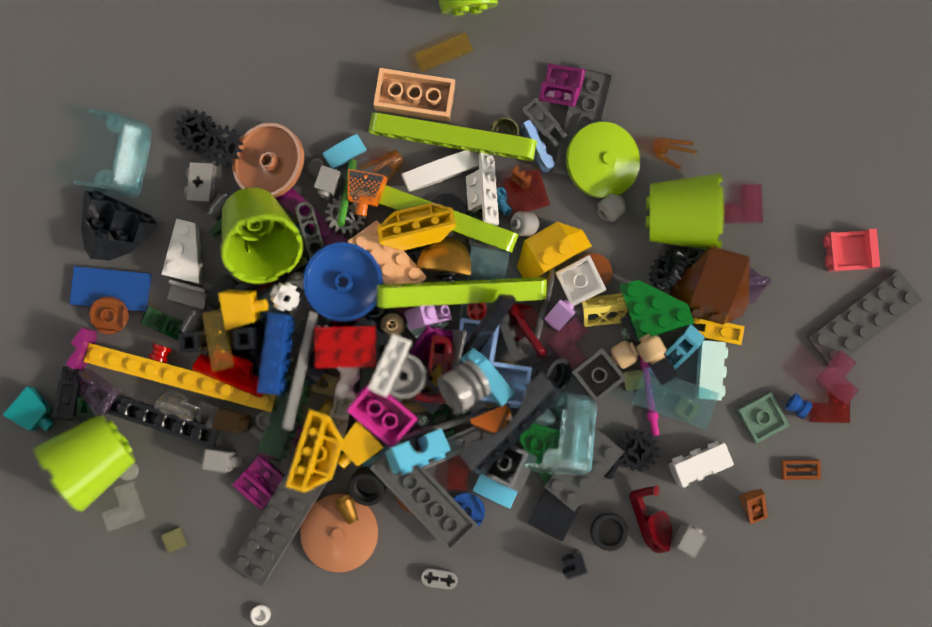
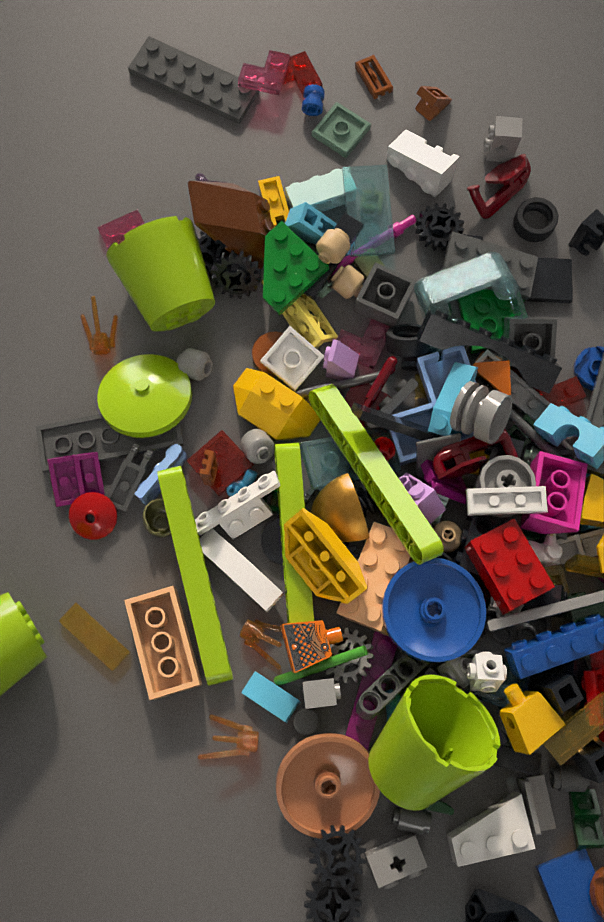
camera: 115 degrees left, 10 degrees down
(322, 121) = (245, 740): none -> clear orange plant
(495, 491) = (564, 347): medium azure slope -> none
(534, 90) = (100, 507): none -> red dish
(851, 250) = (127, 115): coral panel -> none

